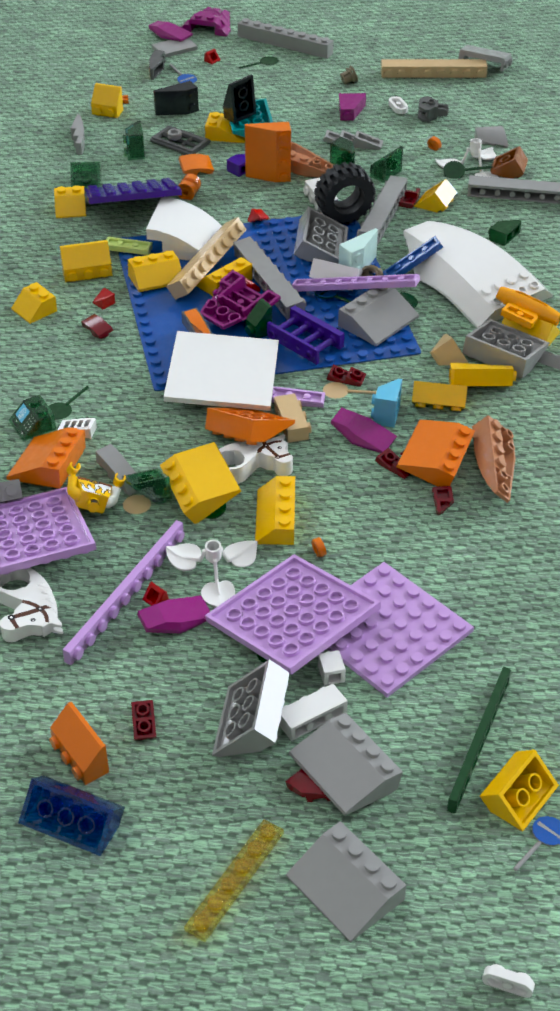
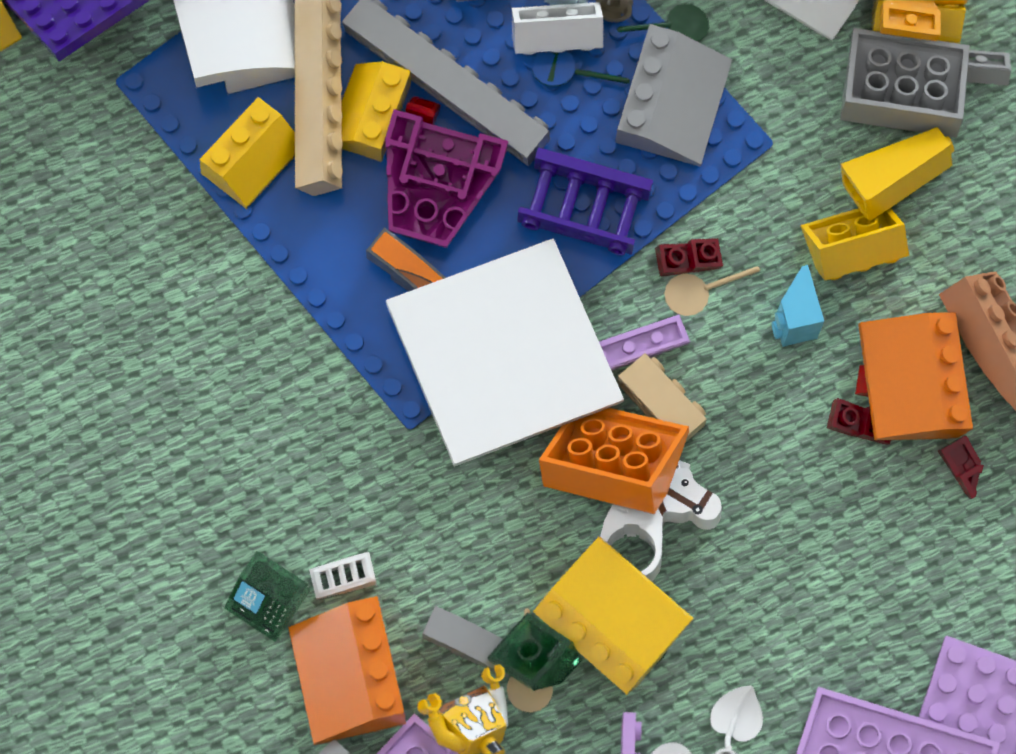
camera: 30 degrees left, 30 degrees up
(34, 303) = (91, 323): yellow slope -> none
(63, 410) = (288, 544): dark green piece -> none
(86, 261) = (119, 184): yellow slope -> none
(97, 326) = (230, 328): dark red slope -> none
(104, 299) = (197, 252): red slope -> none
(129, 245) = (155, 99): yellowish green tile -> none
(257, 319) = (497, 205): dark green slope -> none
(276, 512) = (746, 613): yellow slope -> none
(318, 547) = (843, 654): orange tile -> none
(358, 282) = (609, 49): lavender tile -> none
(362, 431) = (782, 377): magenta piece -> none
(447, 352) = (818, 129): tan slope -> none

